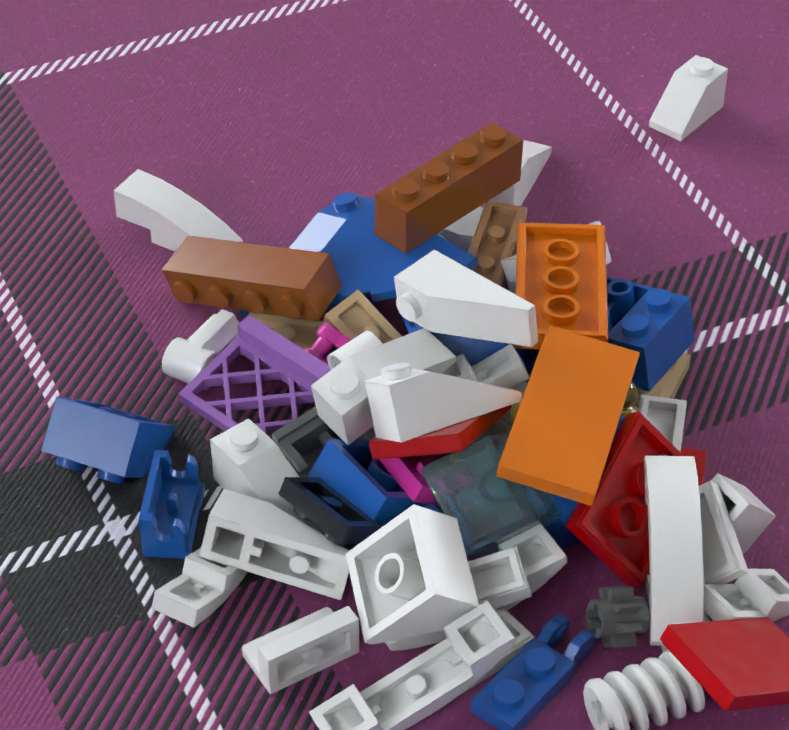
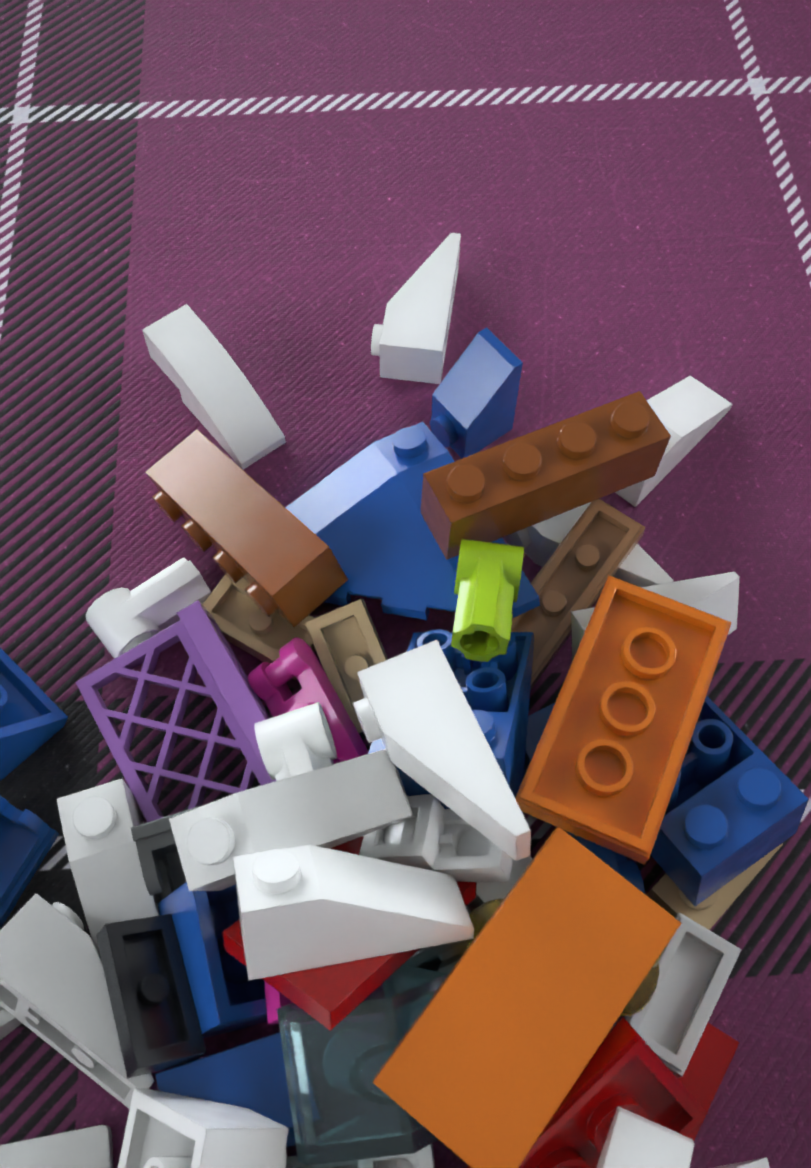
camera: 20 degrees right, 20 degrees up
(309, 150) = (419, 319): none -> white slope
(376, 161) = (477, 396): none -> blue slope
(444, 238) = (486, 589): none -> lime piece

